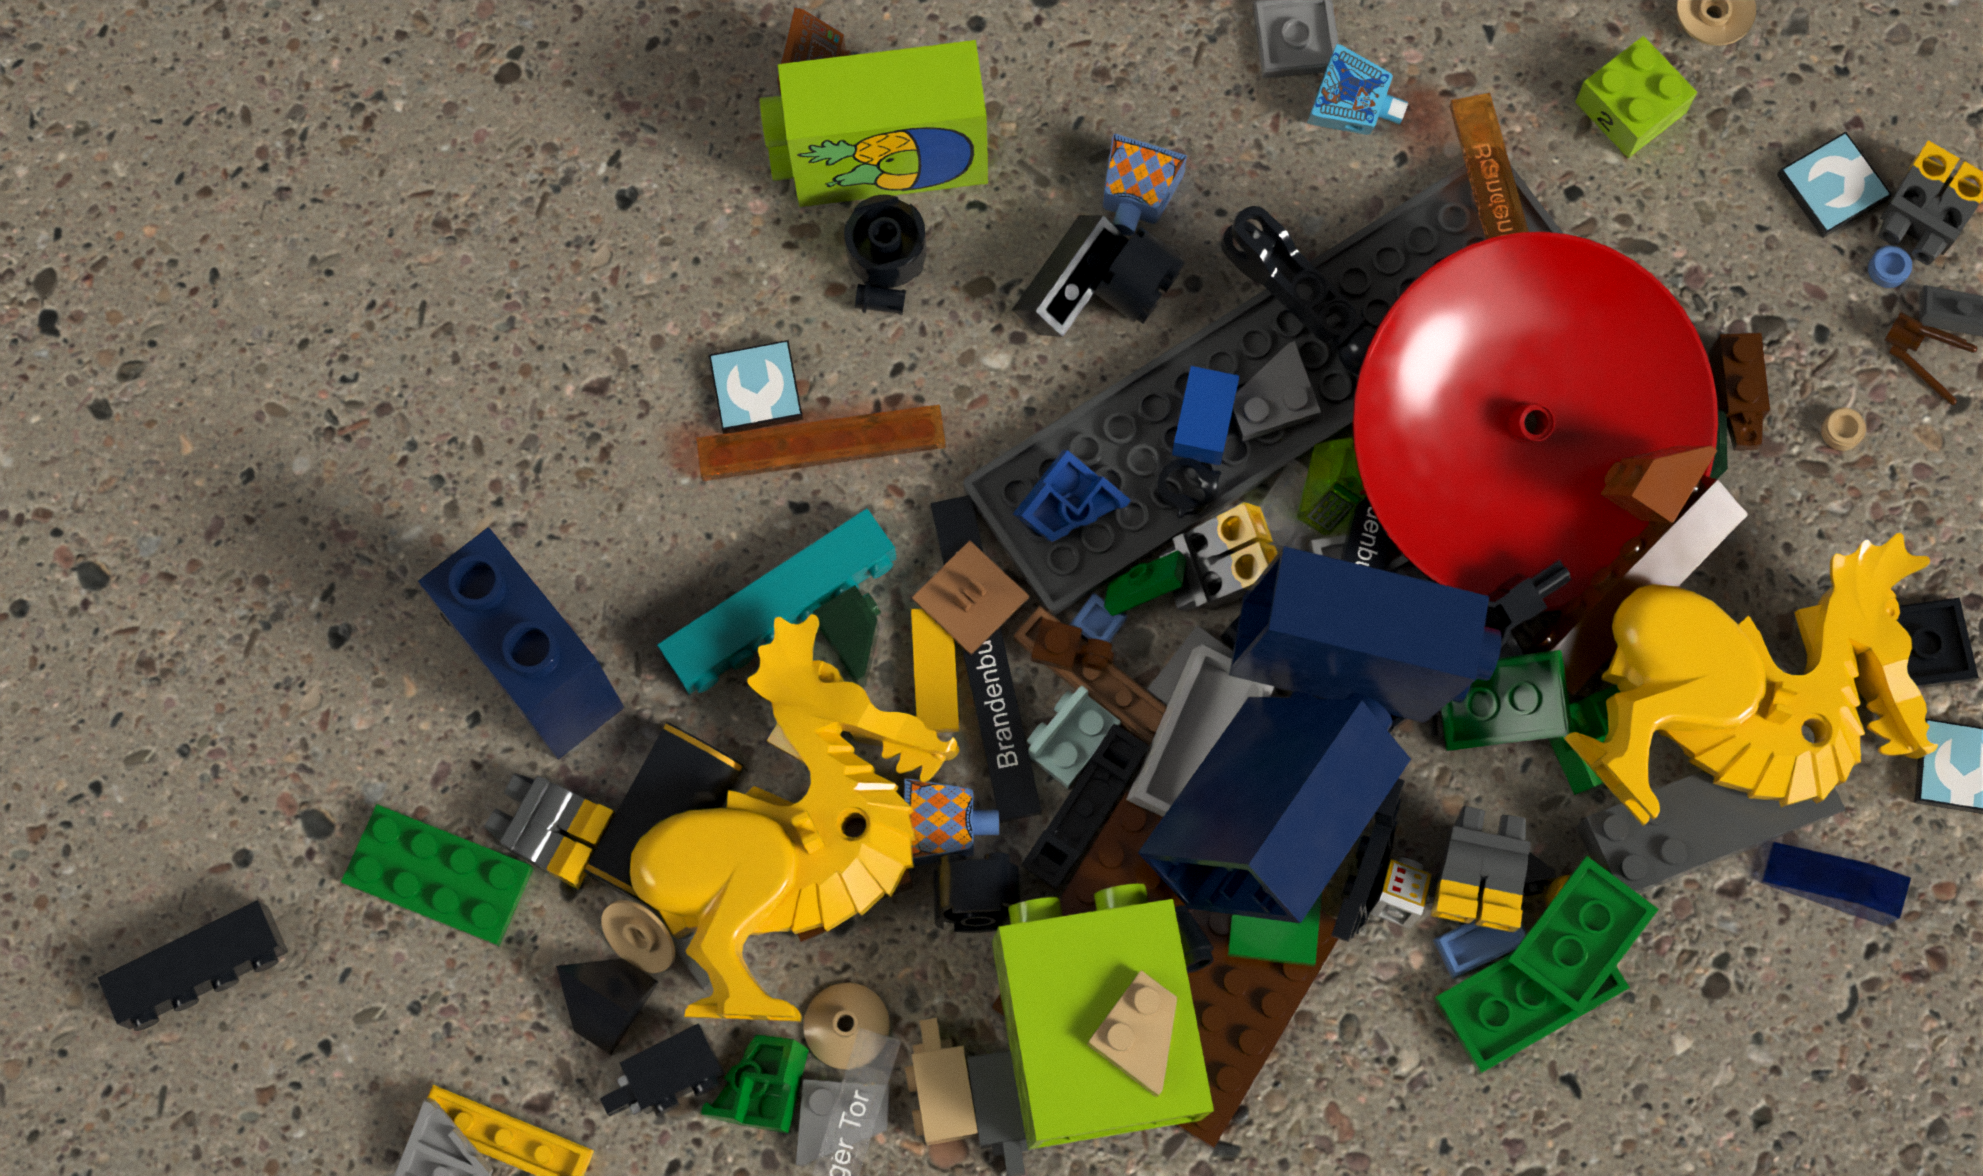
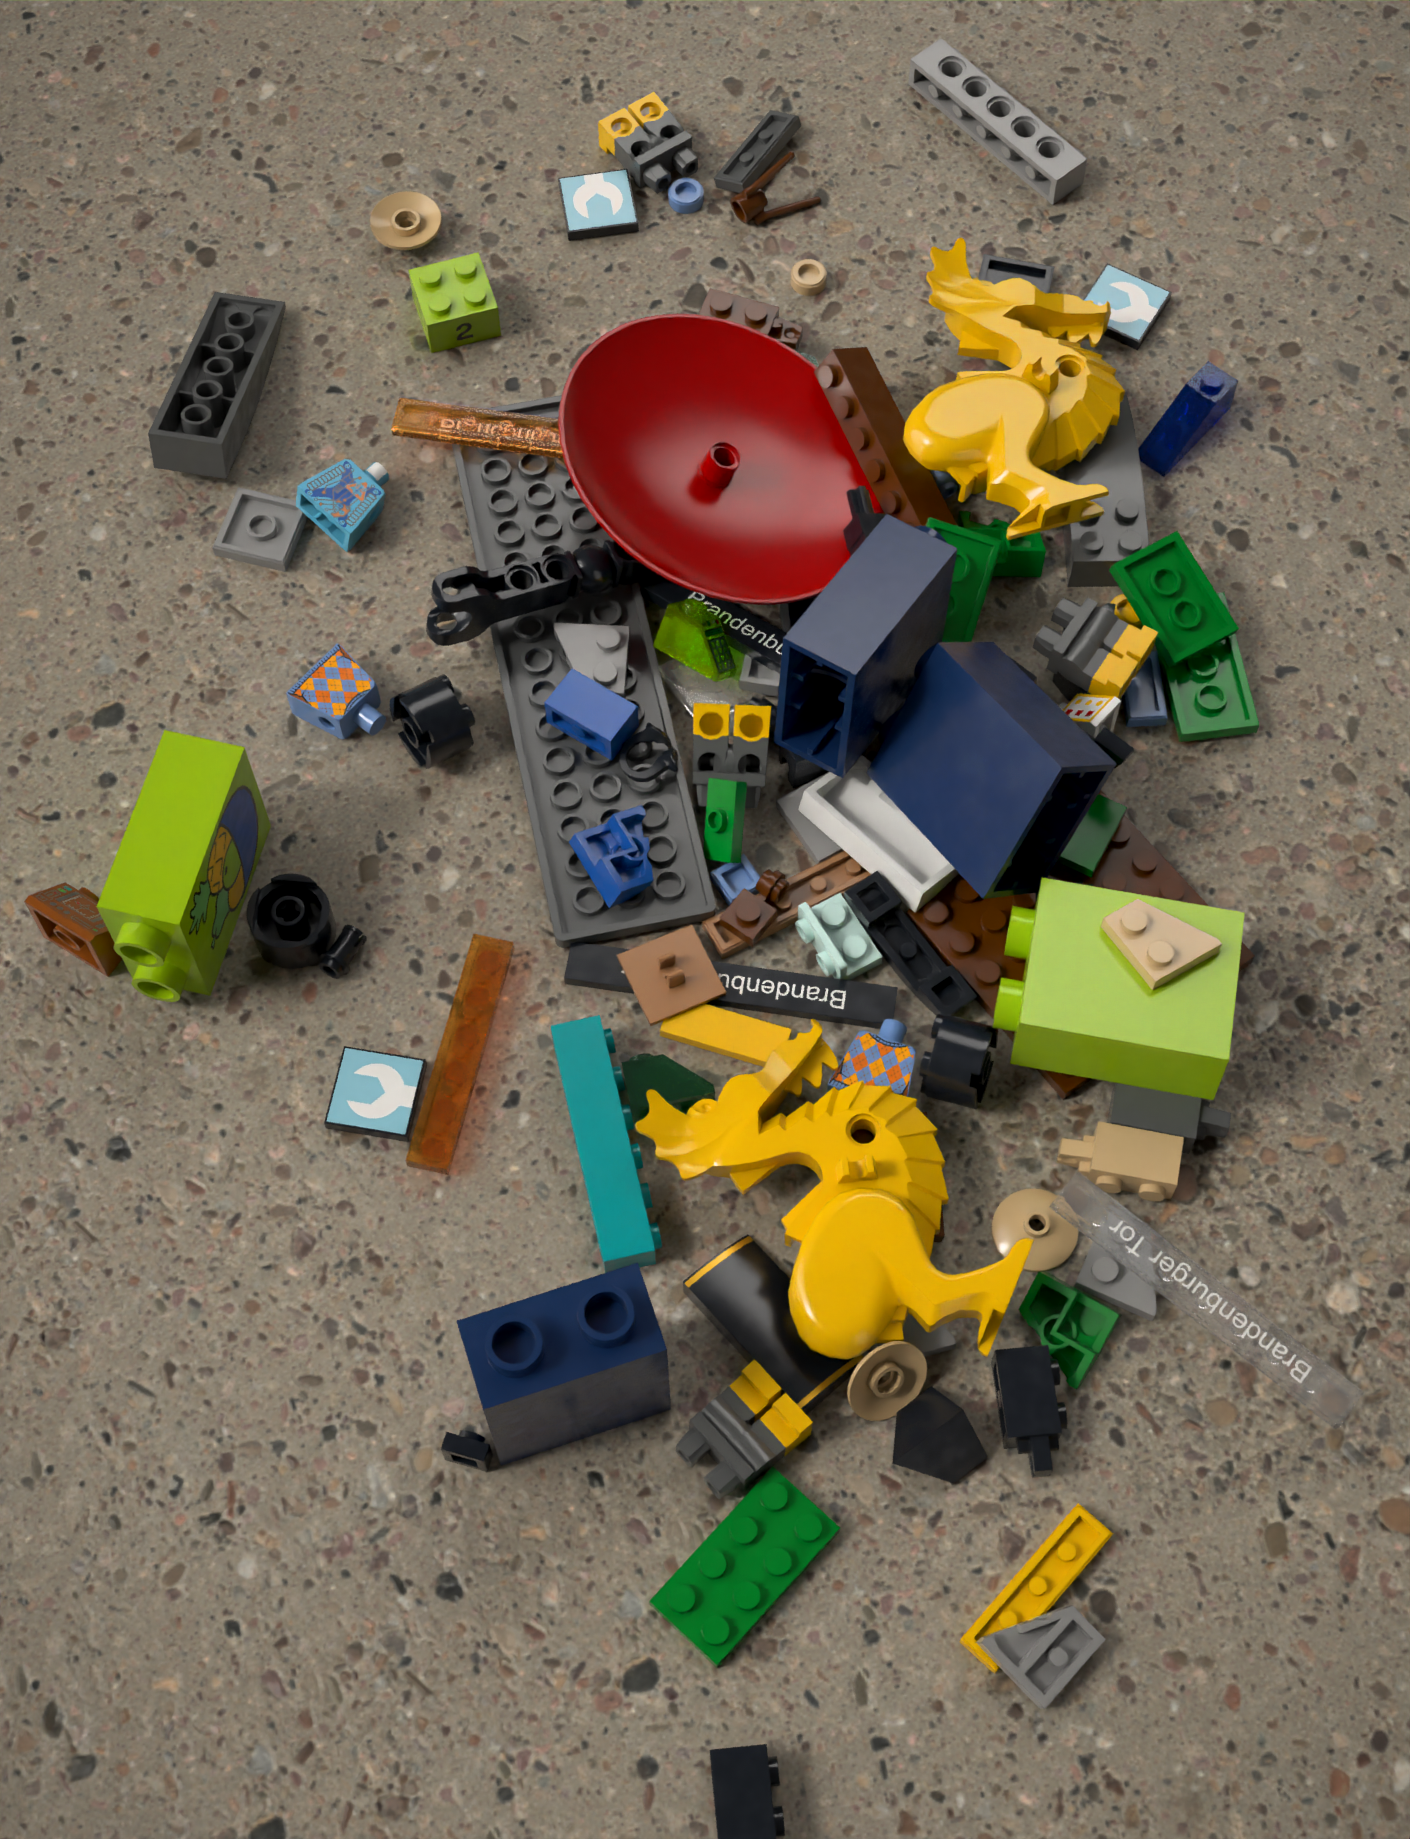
camera: 70 degrees left, 10 degrees down
(1070, 275) = (403, 778): black brick -> none
(1657, 482) = (817, 388): dark orange slope -> none

